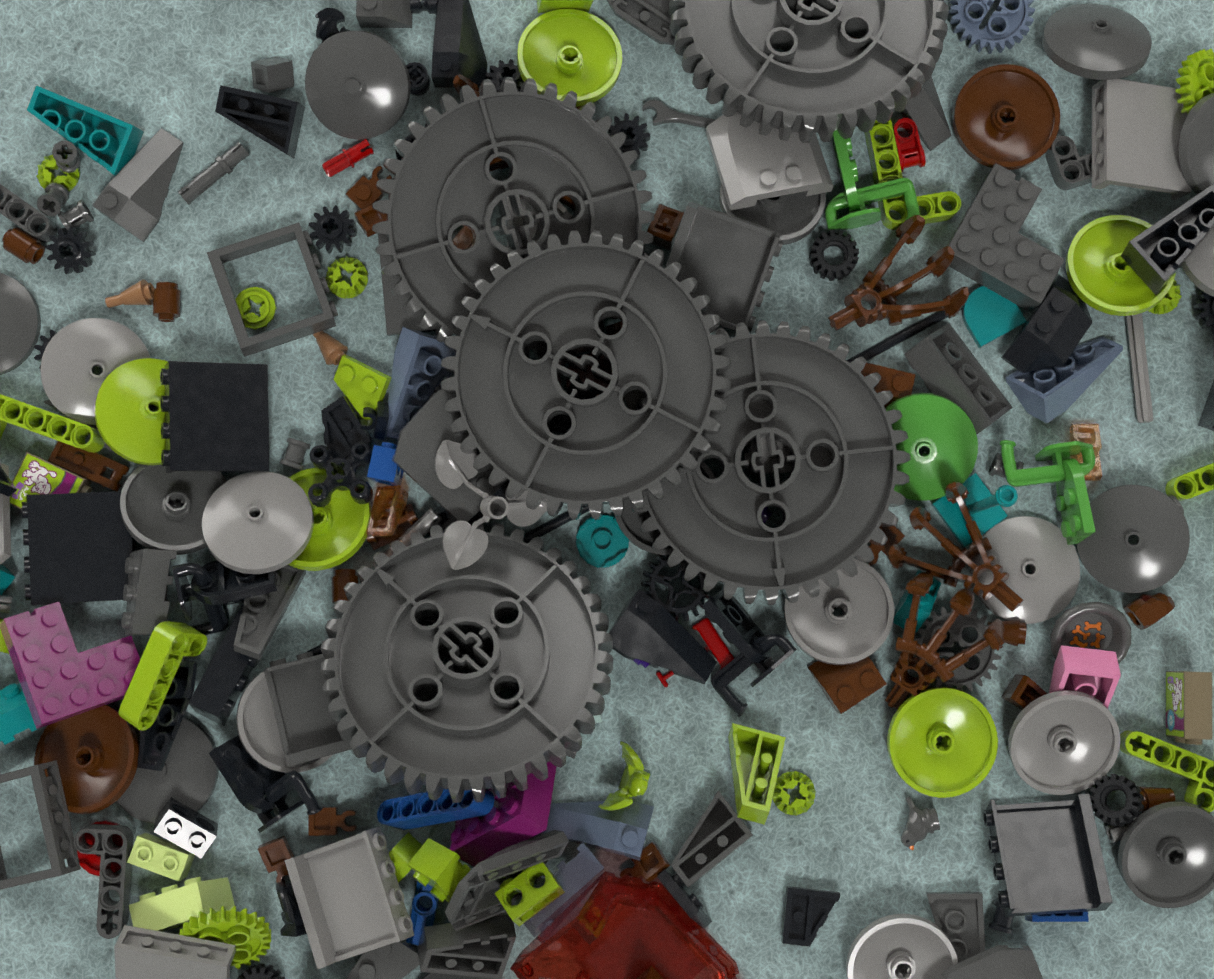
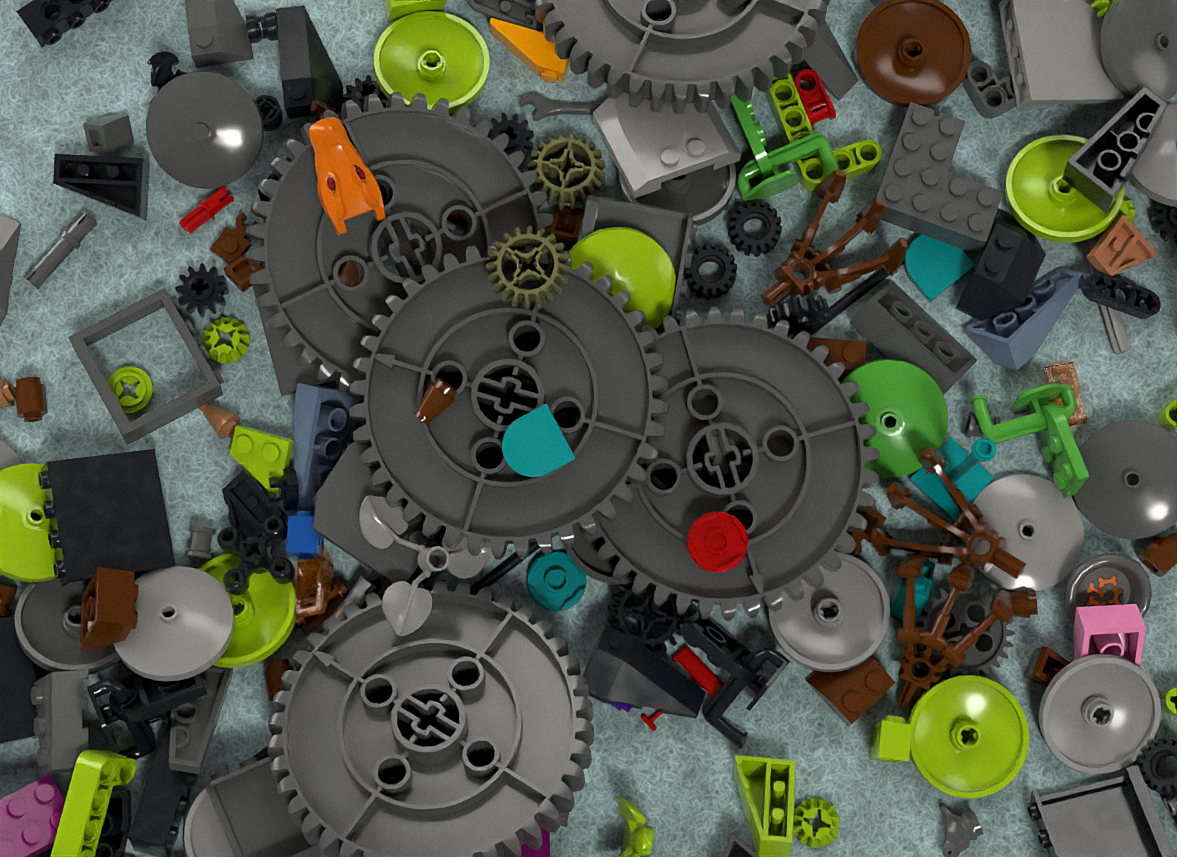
camera: 15 degrees left, 5 degrees down
(203, 500) = (108, 608): none -> reddish brown slope
(470, 152) = (343, 179): none -> orange animal
(519, 365) = (435, 401): none -> reddish brown cone
(602, 420) = (535, 444): none -> teal tile
(606, 241) = (520, 277): none -> olive gear
(654, 166) = (555, 168): none -> olive gear
(661, 59) = (531, 49): none -> light orange slope
(720, 273) = (636, 267): none -> lime dish
(750, 534) = (717, 542): none -> red tile
(787, 303) = (715, 288): none -> black tyre
(860, 338) = (800, 313): none -> black gear
(873, 734) = (891, 740): none -> lime brick
(1143, 373) = (1109, 298): none -> black beam
(1161, 328) = (1120, 248): none -> nougat wing

